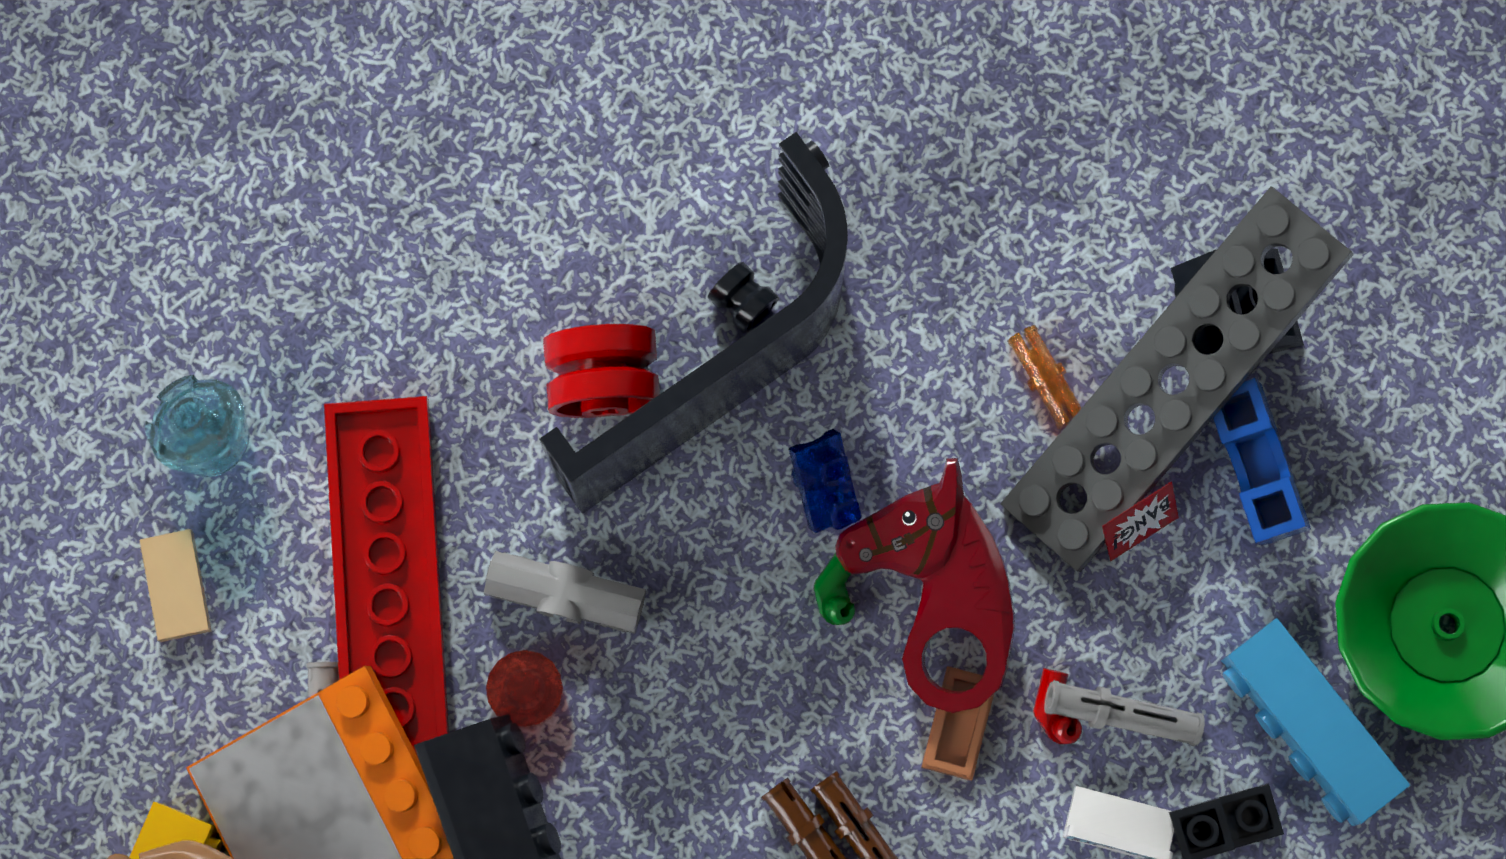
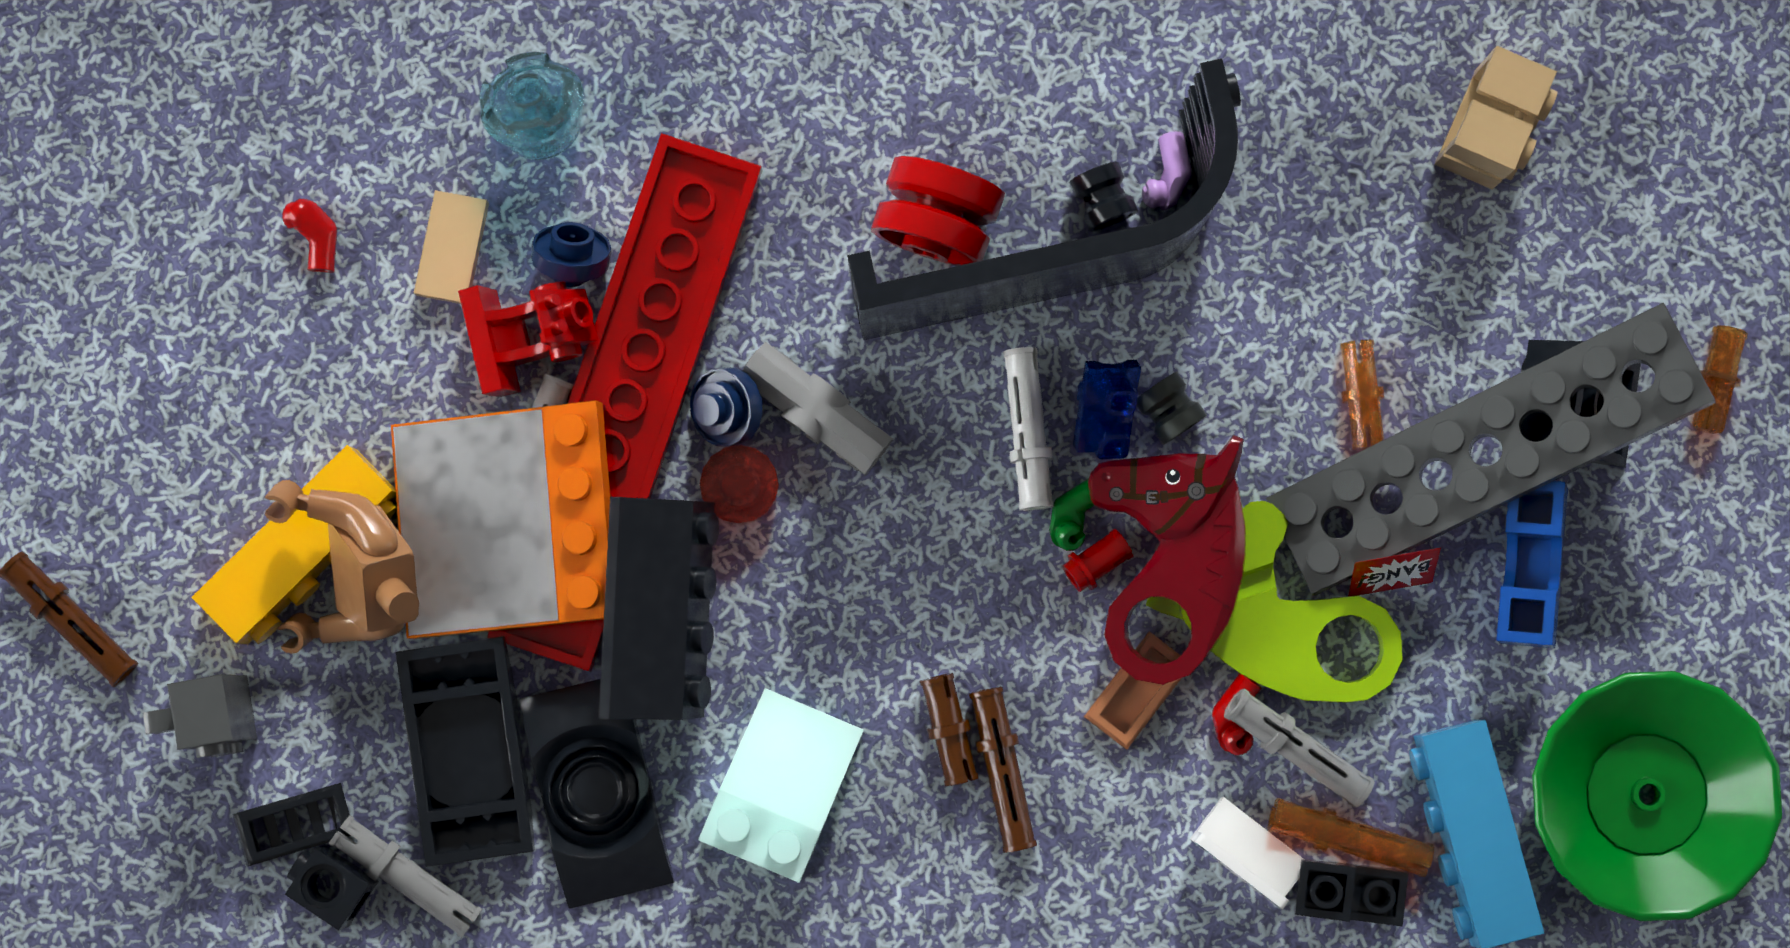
camera: 25 degrees right, 5 degrees up
(47, 619) = (318, 229): none -> red arm
(254, 646) = (501, 335): none -> red tile
(287, 545) = (571, 253): none -> dark blue plate
(483, 624) = (726, 406): none -> dark blue plate
(773, 549) = (1029, 437): none -> white pin
(799, 253) = (1176, 173): none -> lavender arm
(872, 451) = (1163, 397): none -> pearl dark grey wheel
(874, 622) = (1097, 560): none -> red pin
(1059, 85) = (1496, 118): none -> tan piece
(1063, 623) = (1277, 638): none -> lime animal
(1192, 775) = (1337, 833): none -> clear orange pin
(1351, 232) = (1720, 376): none -> clear orange axle

